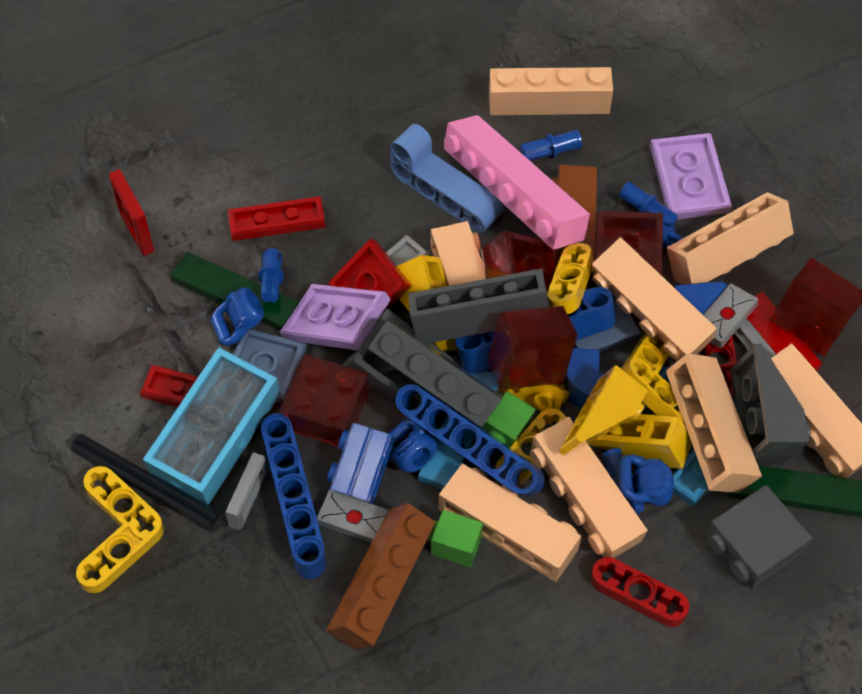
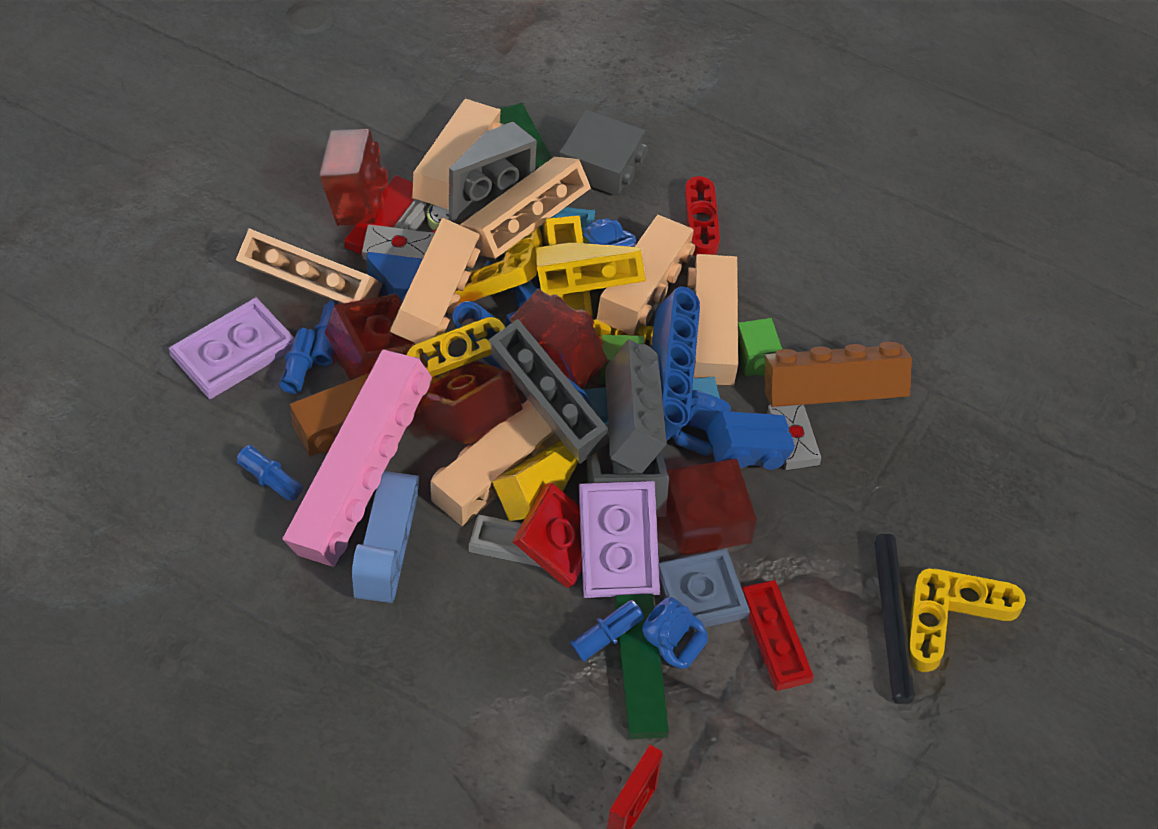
camera: 125 degrees left, 5 degrees down
(212, 426) = (810, 570): brick -> none
(246, 491) = (841, 521): light grey tile -> none
(276, 218) = (525, 680): red tile -> none
(294, 509) = (809, 497): blue beam -> none
(550, 91) = (199, 500): light nougat brick -> none

